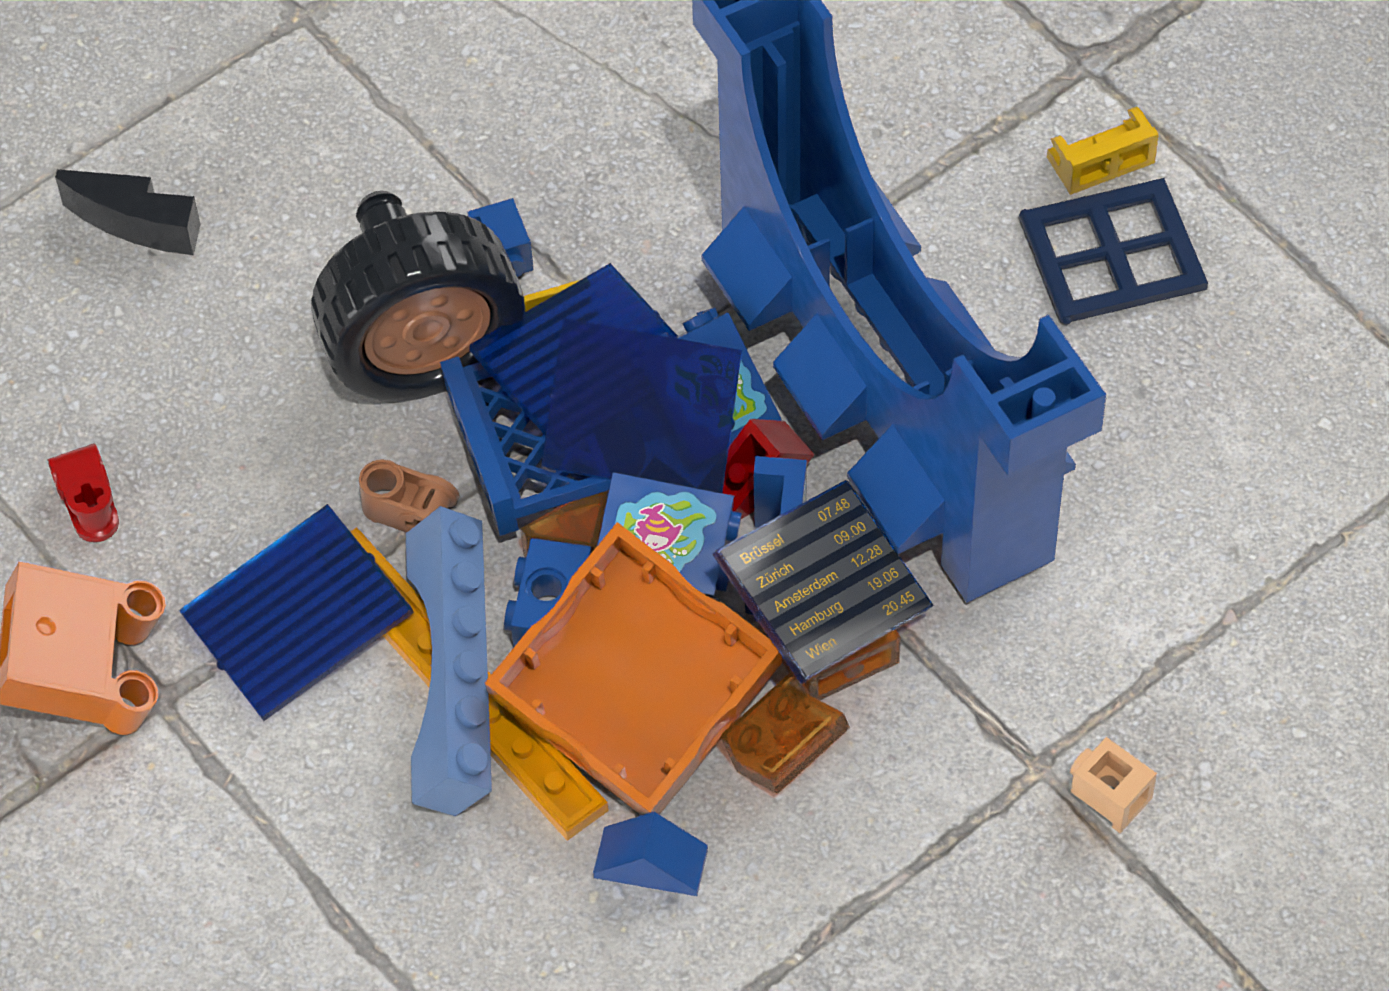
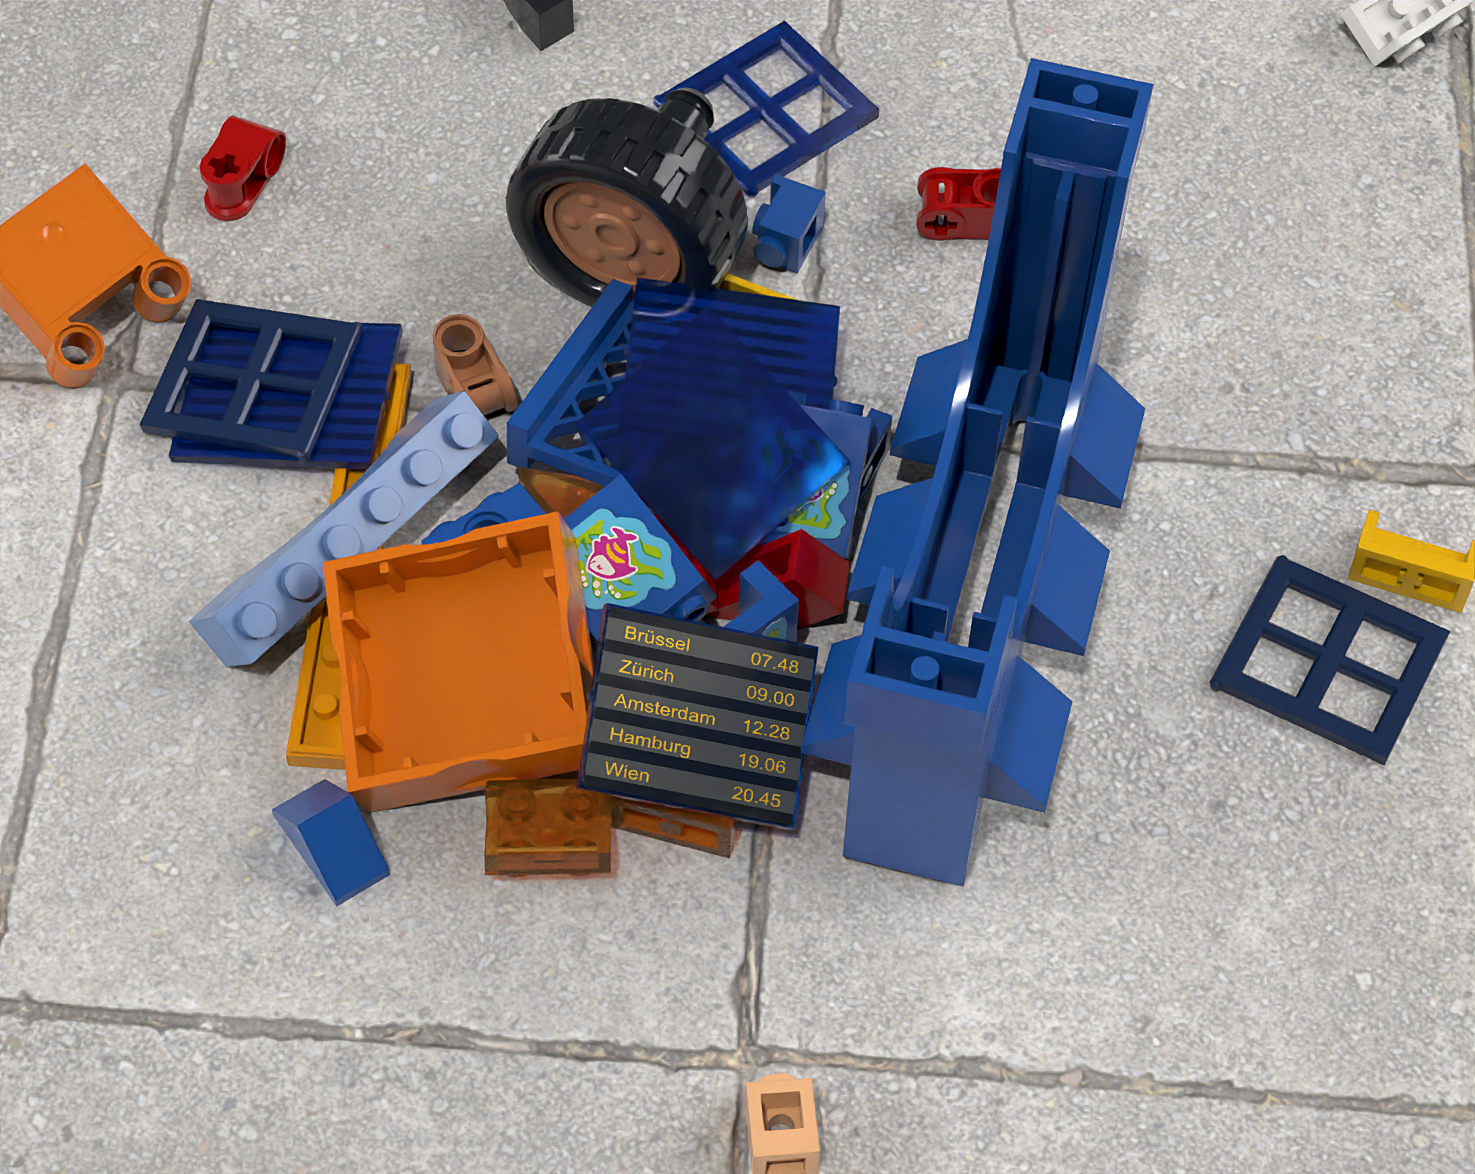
camera: 40 degrees right, 0 degrees up
(265, 619) = (250, 380): none -> dark blue window
(393, 176) = (802, 145): none -> clear blue window
(596, 139) = (966, 203): none -> red piece

